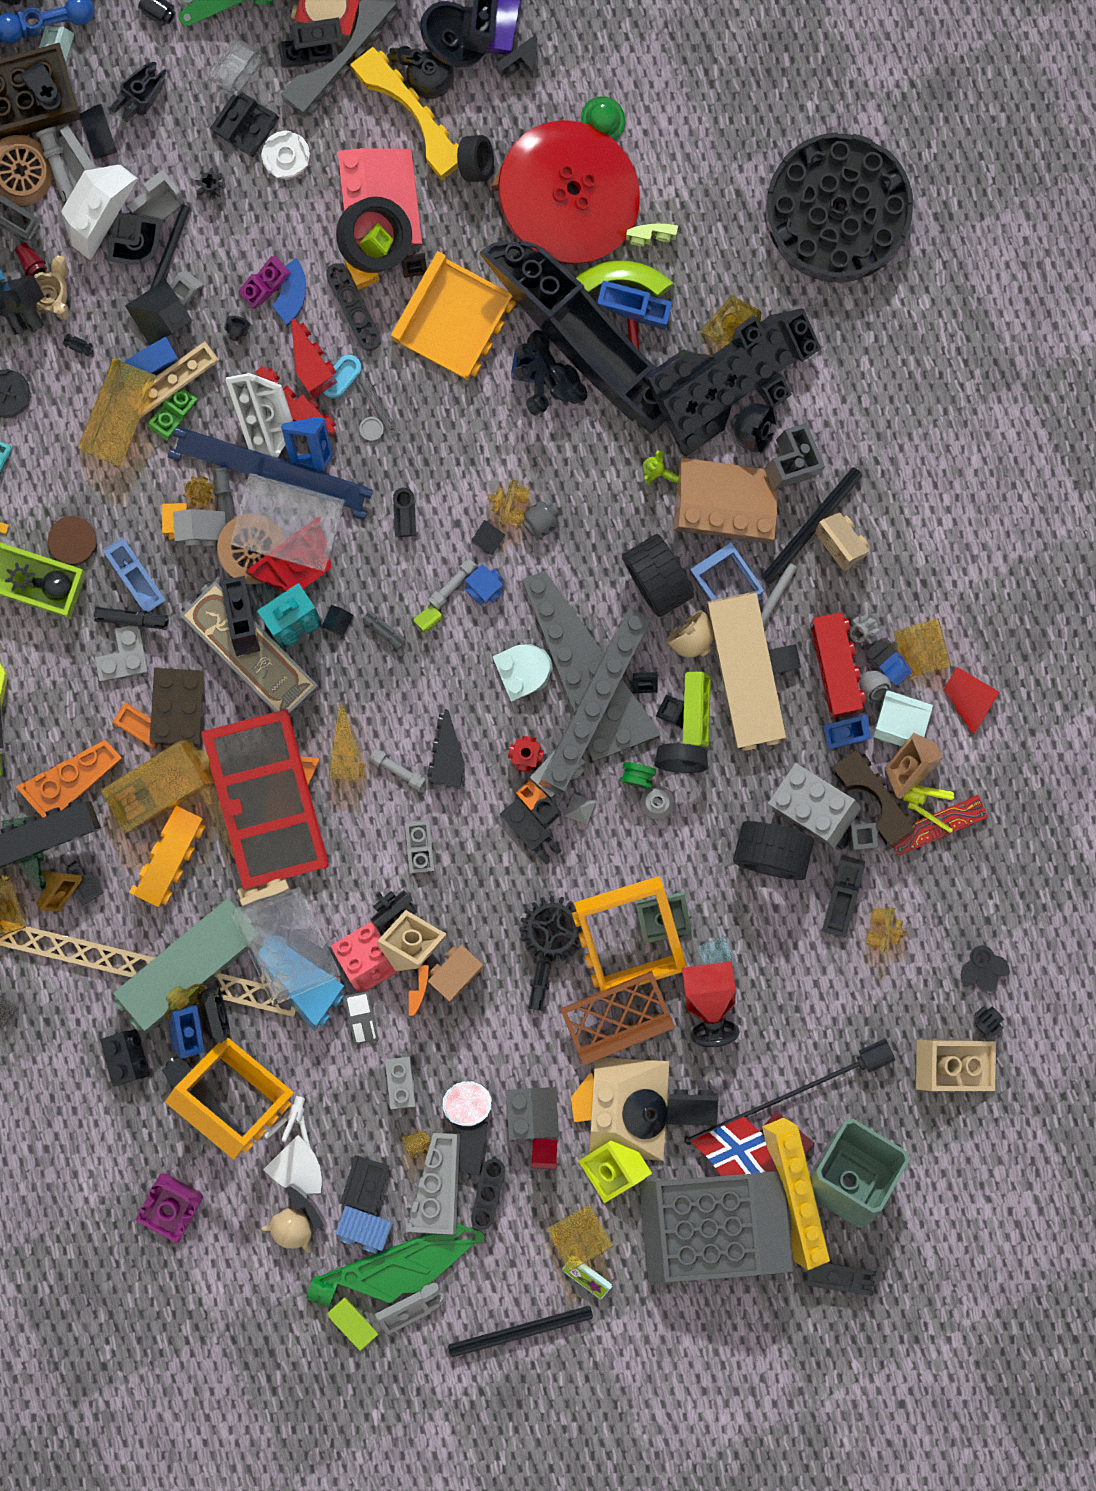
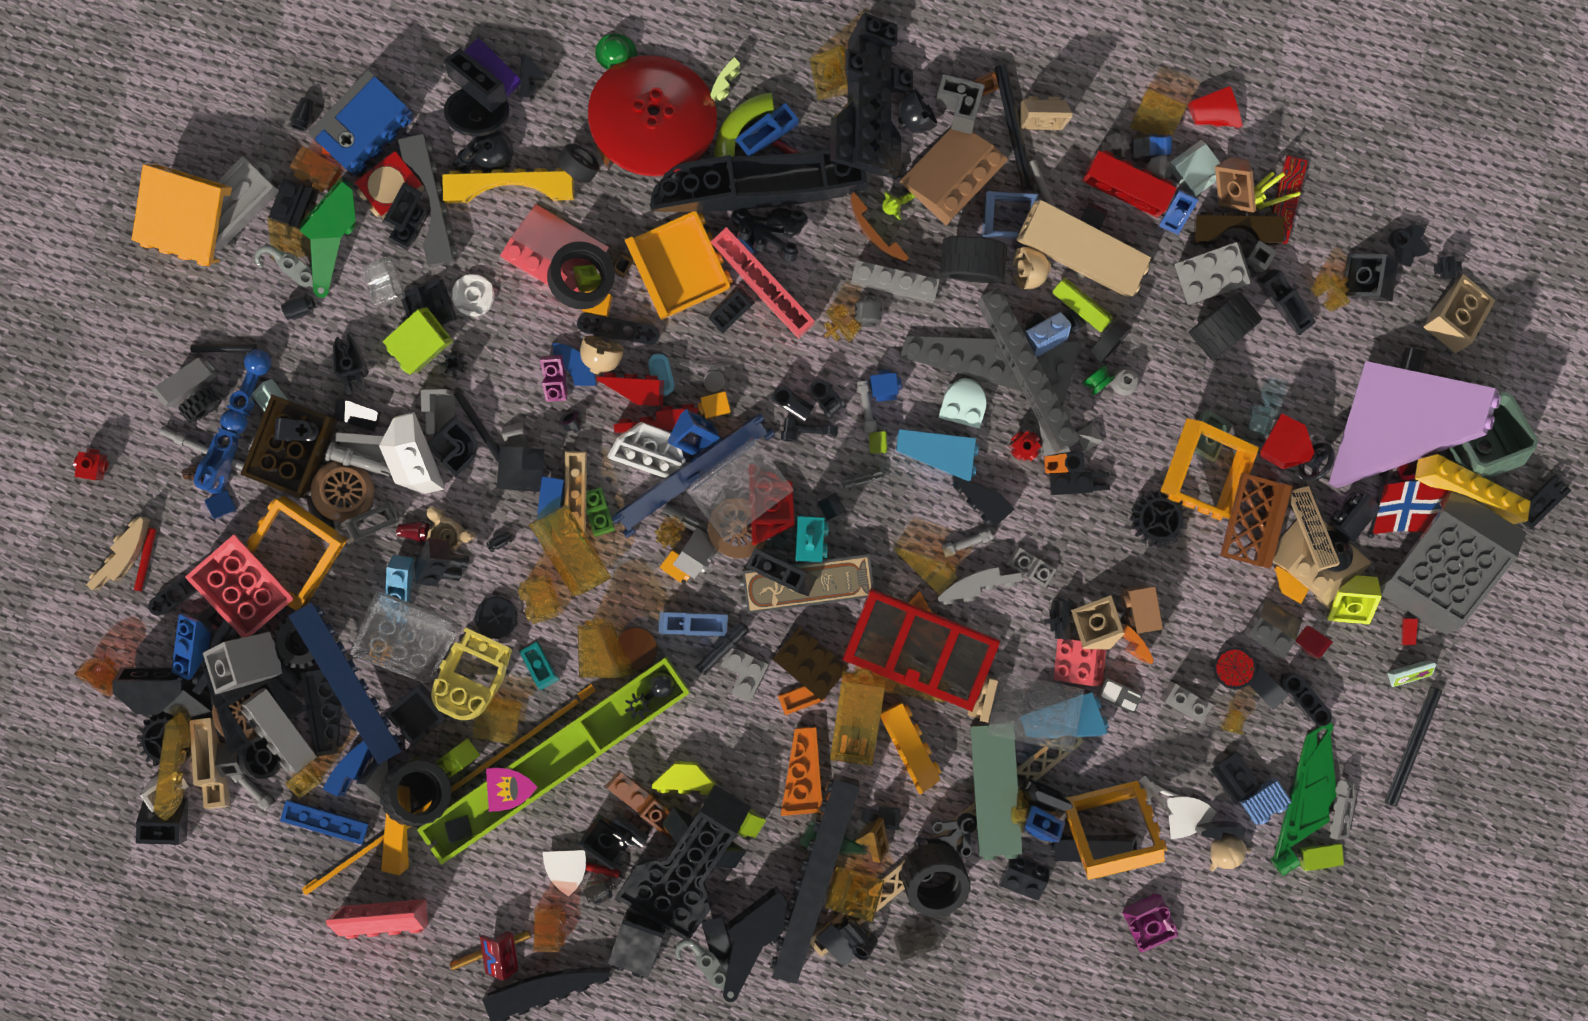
camera: 55 degrees left, 5 degrees up
(39, 984) = (941, 899): none -> black tyre
(46, 507) = (601, 651): none -> clear yellow slope
(52, 417) = (539, 599): none -> clear yellow brick
(103, 959) = (959, 829): none -> black plant
(205, 136) = (417, 341): none -> lime brick
(316, 306) = (600, 355): none -> tan cylinder
(349, 444) = (714, 405): none -> light orange brick
(358, 801) = (969, 585): none -> light grey slope
(380, 531) = (791, 430): none -> black brick
(432, 542) = (827, 399): none -> black piece
(438, 1188) = (1280, 734): light grey wing -> none
(462, 681) = (943, 452): none -> dark azure slope
(469, 396) = (745, 297): none -> black slope
(488, 537) = (852, 358): black slope -> none
(493, 404) = (763, 283): none -> coral slope
(539, 985) = (1191, 557): black axle -> none
(579, 1237) = (1384, 659): clear yellow hinge -> none
(586, 522) = (895, 281): none -> light grey brick
(625, 442) = (893, 251): none -> dark orange slope
(625, 1245) = (1409, 631): none -> red piece
(642, 696) = (1048, 334): none -> medium blue brick
(651, 1077) = (1313, 528): none -> tan tile
(814, 1080) = (1407, 417): none -> lavender slope
(832, 472) = (989, 81): none -> dark orange slope
(925, 956) = (1371, 276): none -> black slope

